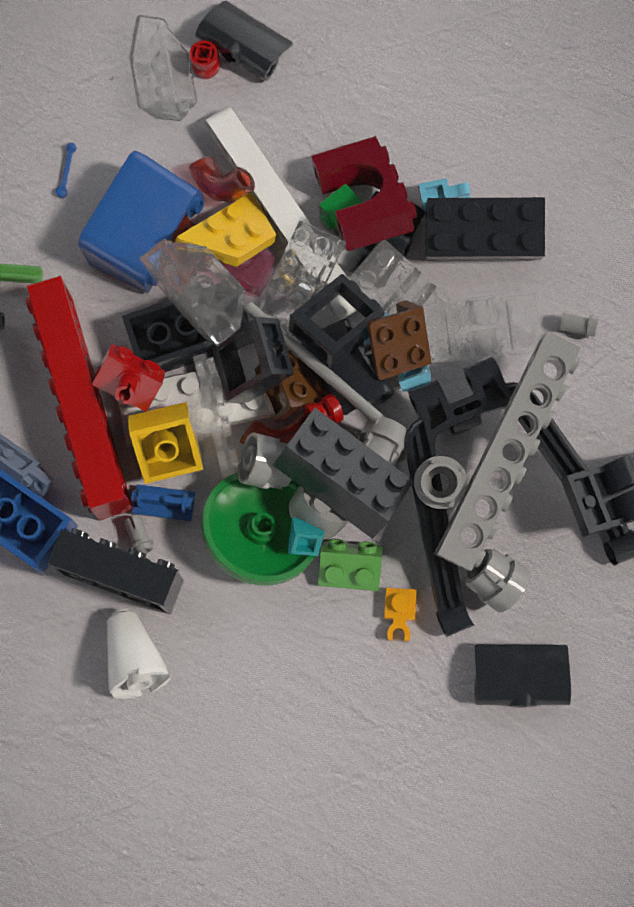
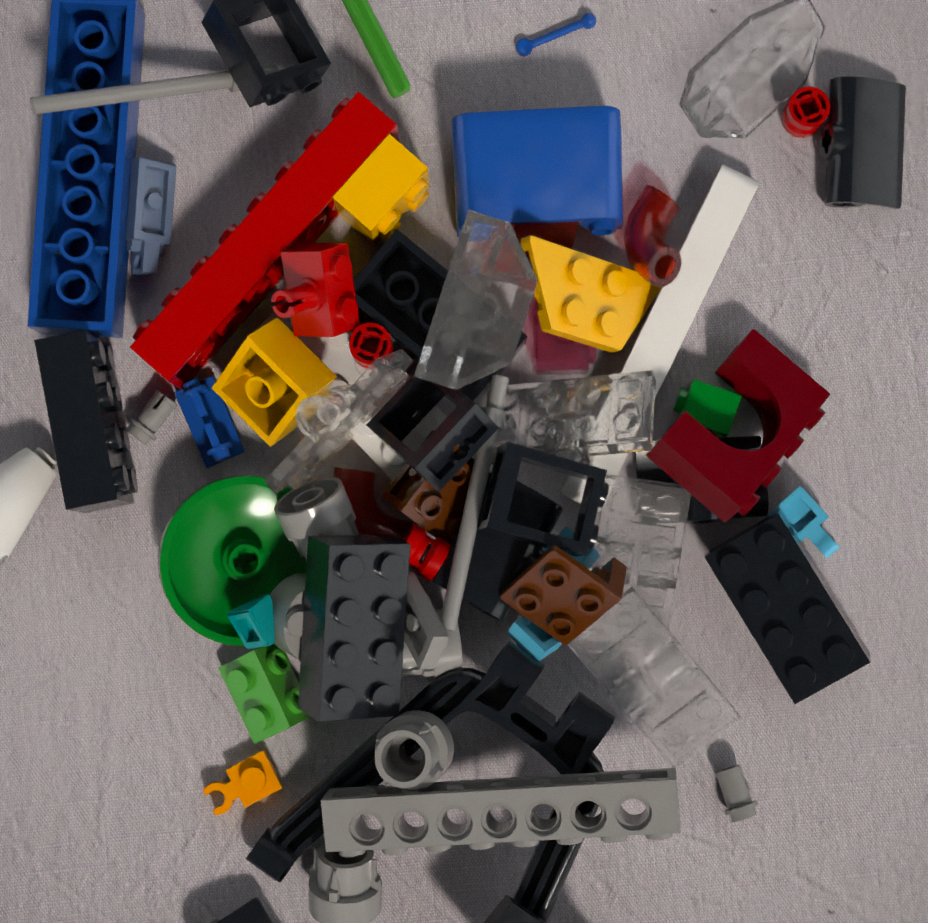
camera: 55 degrees right, 10 degrees up
(94, 313) = (383, 191): none -> yellow brick
(182, 379) = (372, 348): none -> red wheel
(371, 430) = (424, 631): none -> light grey hinge

